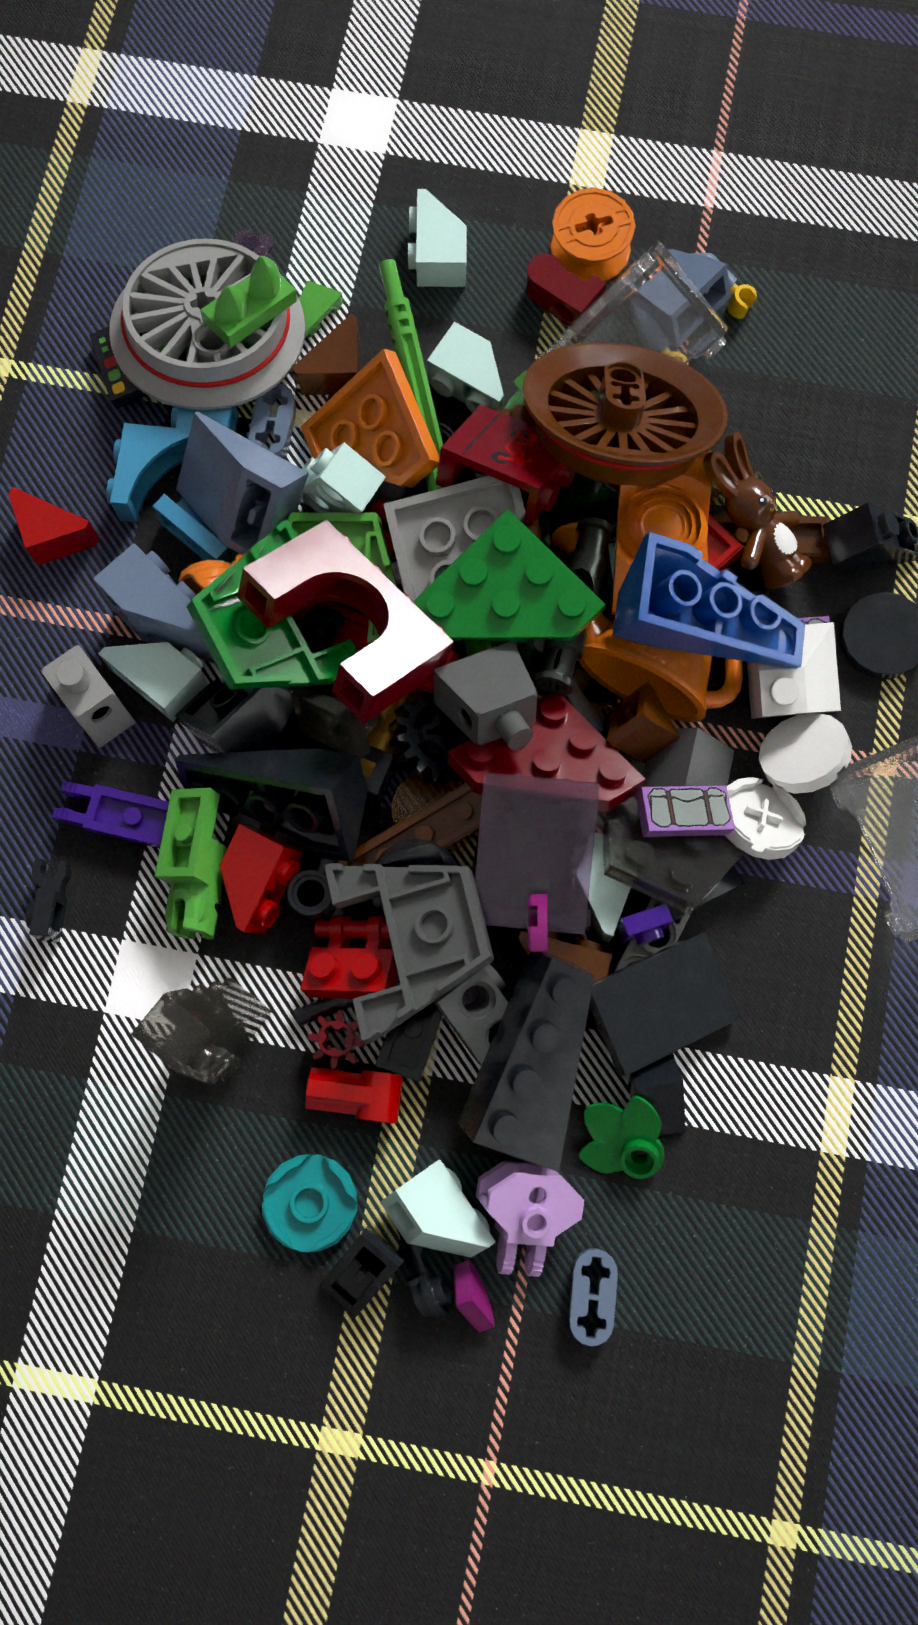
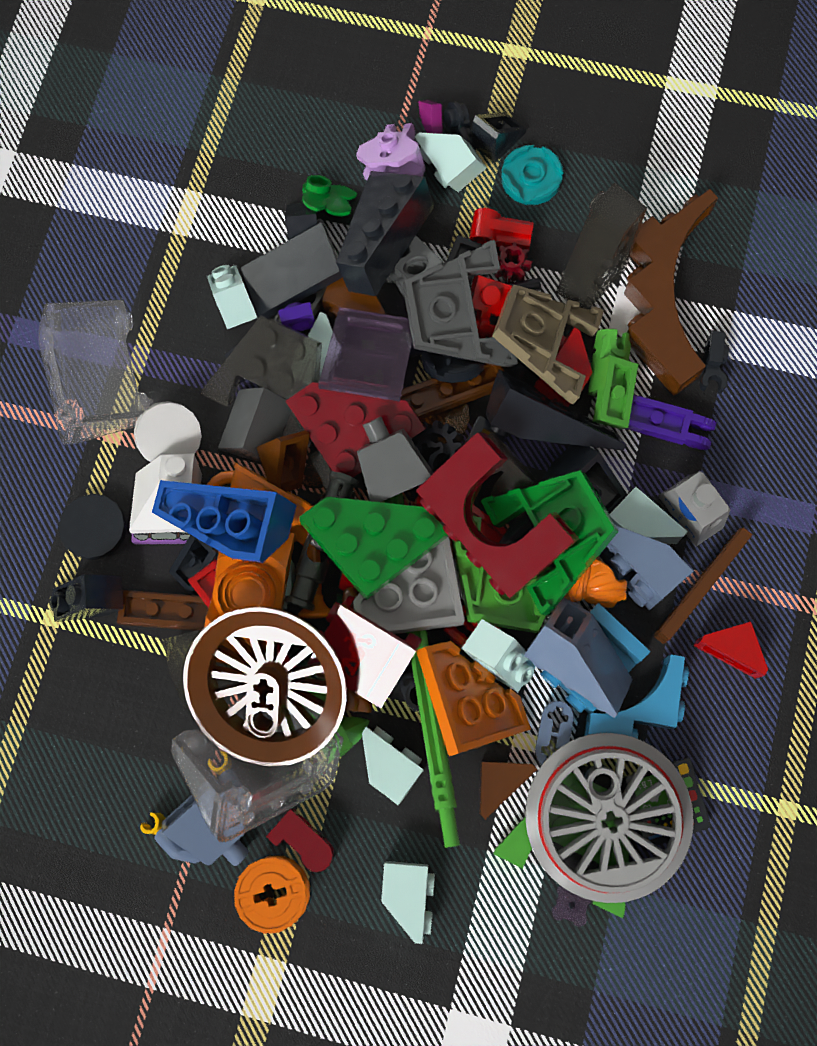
camera: 170 degrees left, 0 degrees up
(75, 606) = (702, 585): none -> reddish brown tile
(117, 1070) = (657, 329): none -> reddish brown arch
(249, 303) = (572, 812): bright green tile -> none
(302, 912) = (533, 329): none -> dark tan wing
(538, 923) = (370, 306): magenta tile -> none
(604, 1297) = (362, 116): sand blue beam -> none
(684, 811) = (260, 382): tile -> none
(749, 967) = (231, 296): none -> light aqua slope
(753, 507) = (171, 609): reddish brown animal -> none
(765, 819) = (207, 390): white tile -> none

